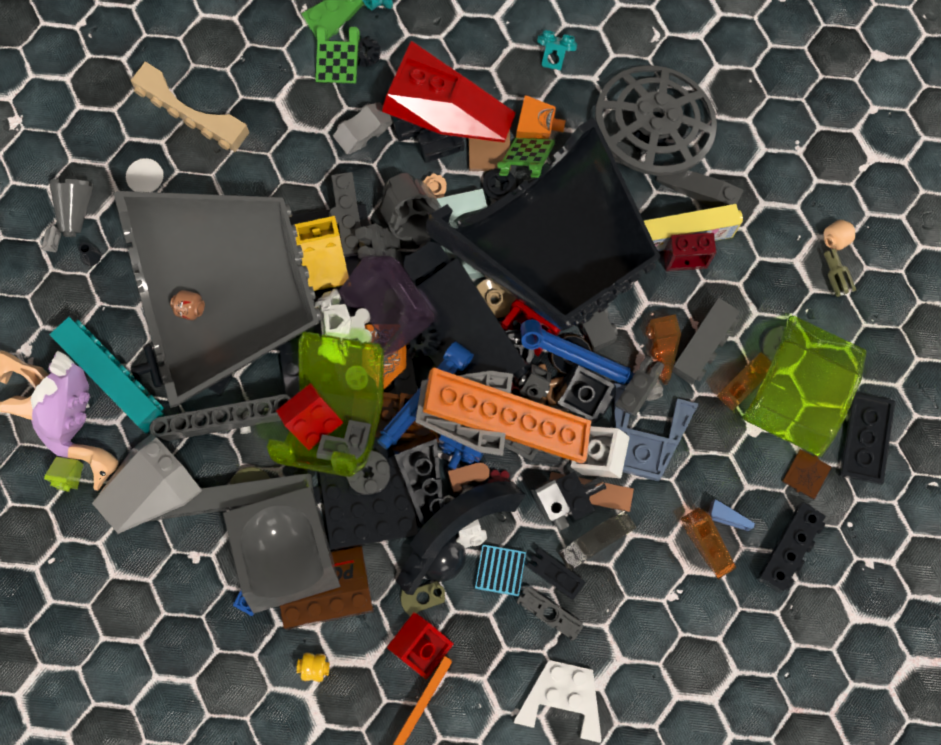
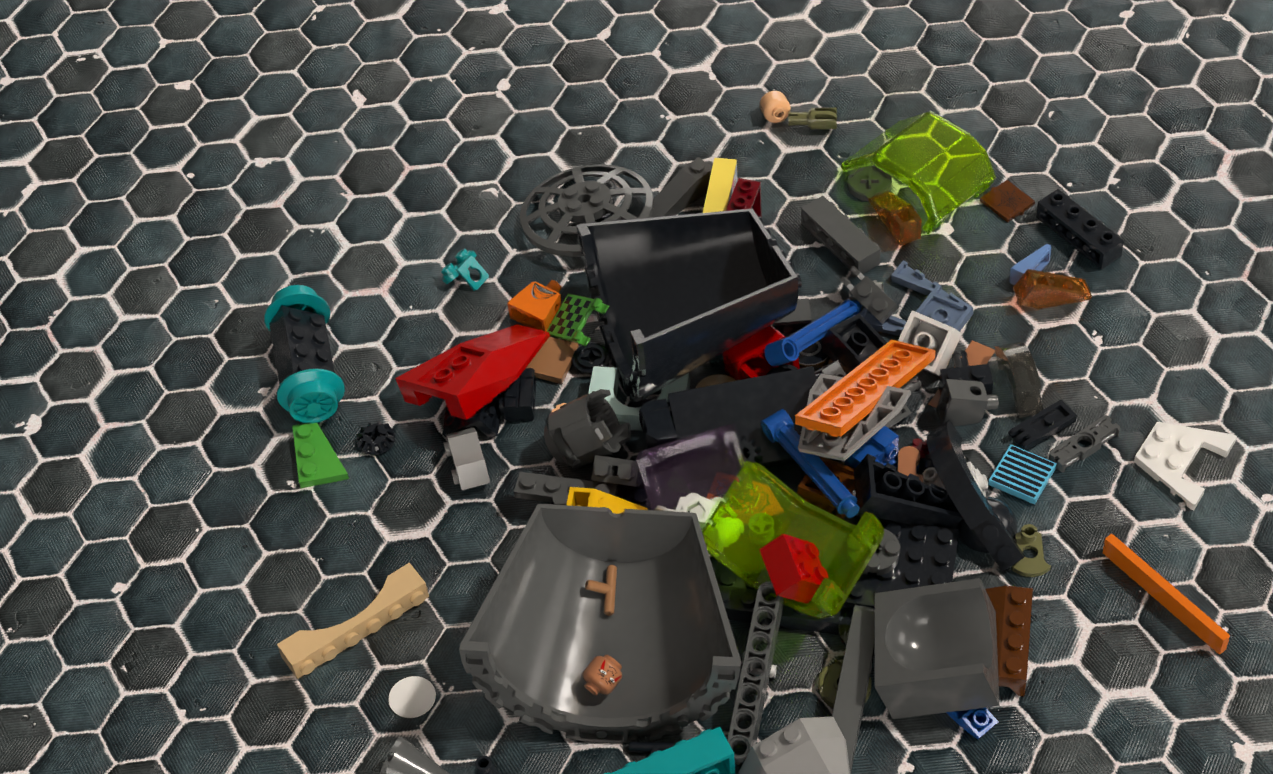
camera: 60 degrees left, 25 degrees down
(264, 280) = (607, 588): none -> medium nougat piece
(313, 667) = (1078, 672): yellow piece -> none
(337, 58) = (373, 462): bright green flag -> none
(353, 442) = (842, 543): dark grey plate -> none
(420, 645) = (1082, 565): red slope -> none
(665, 338) = (829, 266): clear orange slope -> none
(867, 439) = (1006, 152): black tile -> none

